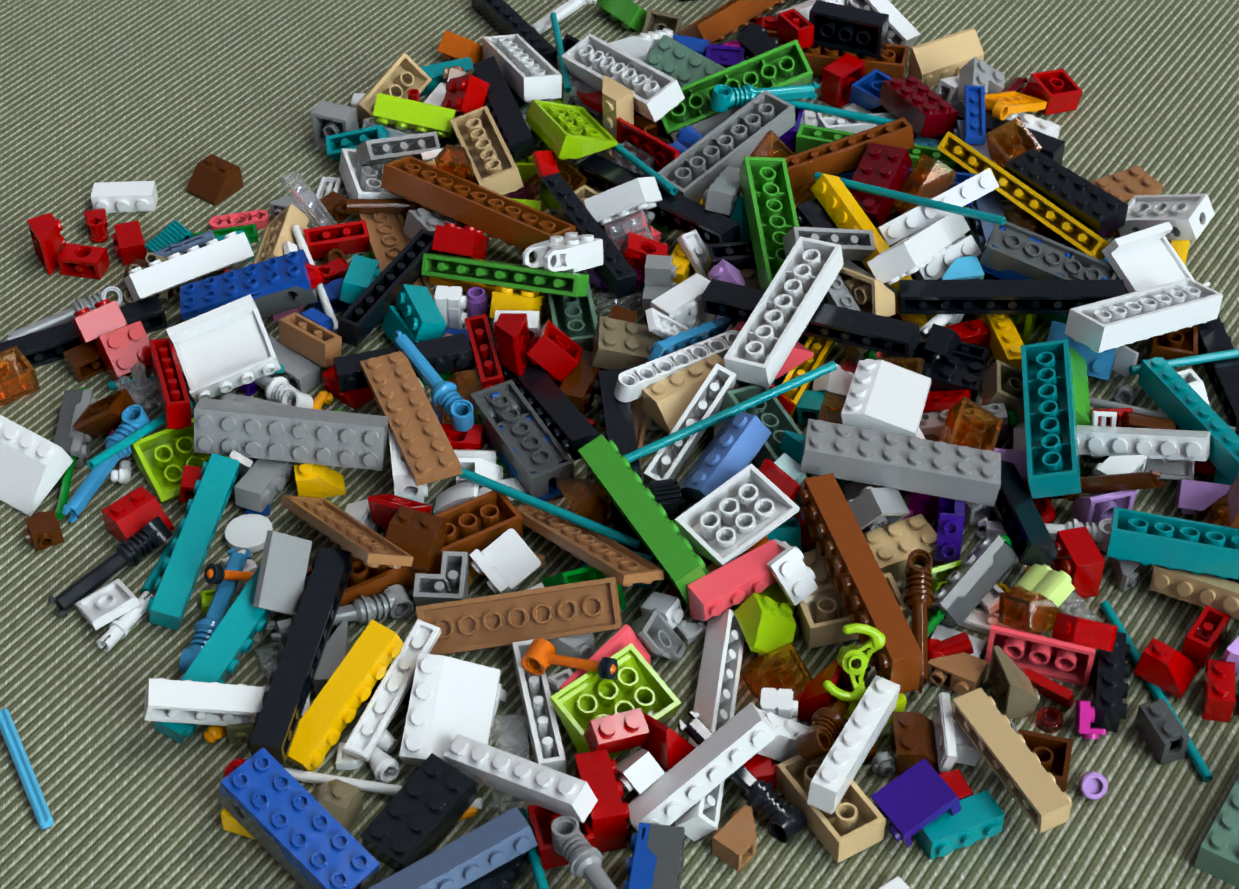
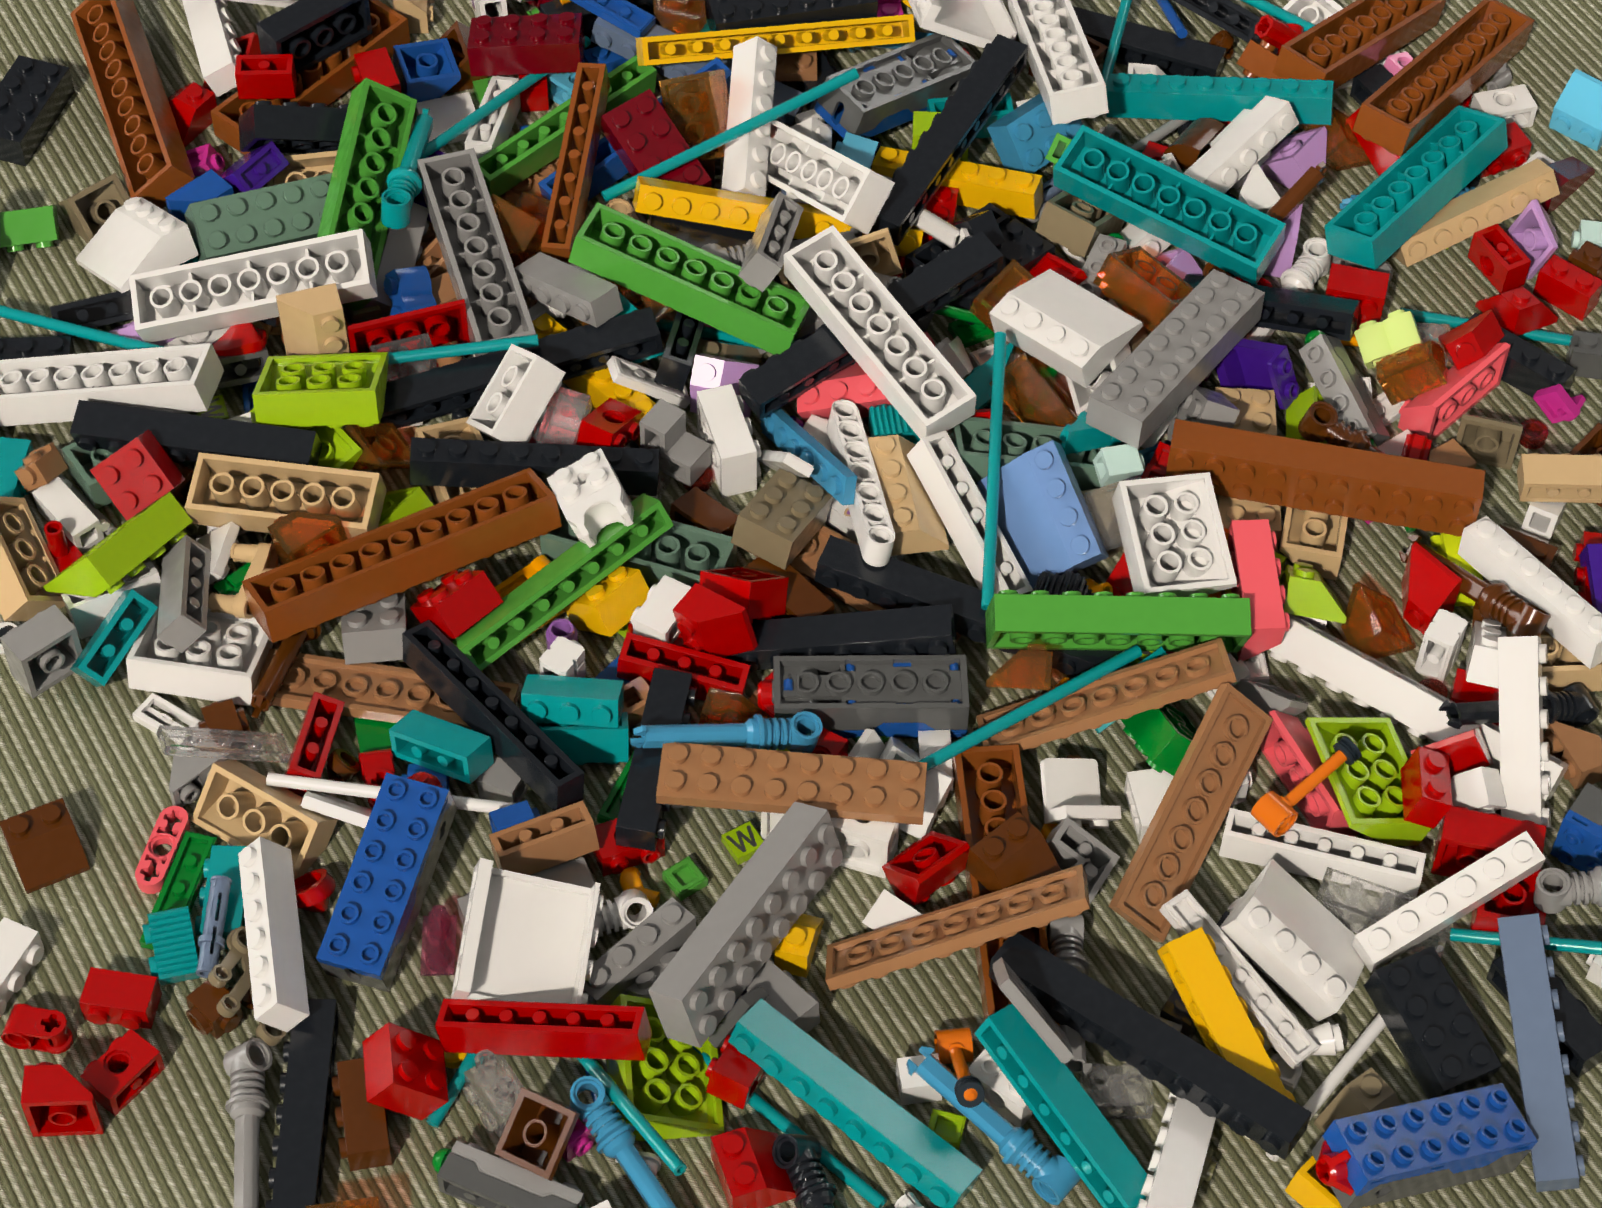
camera: 65 degrees left, 10 degrees up
(99, 321) = (343, 1078): brick -> none
(248, 532) = (849, 1042): white tile -> none
(544, 163) = (380, 449): red tile -> none
(780, 479) = (1136, 470): red tile -> none
(792, 574) = (1282, 527): white bracket -> none
(858, 667) = (1449, 533): lime piece -> none
(944, 732) = (1533, 518): white tile -> none
(1051, 689) = (1507, 408): red tile -> none

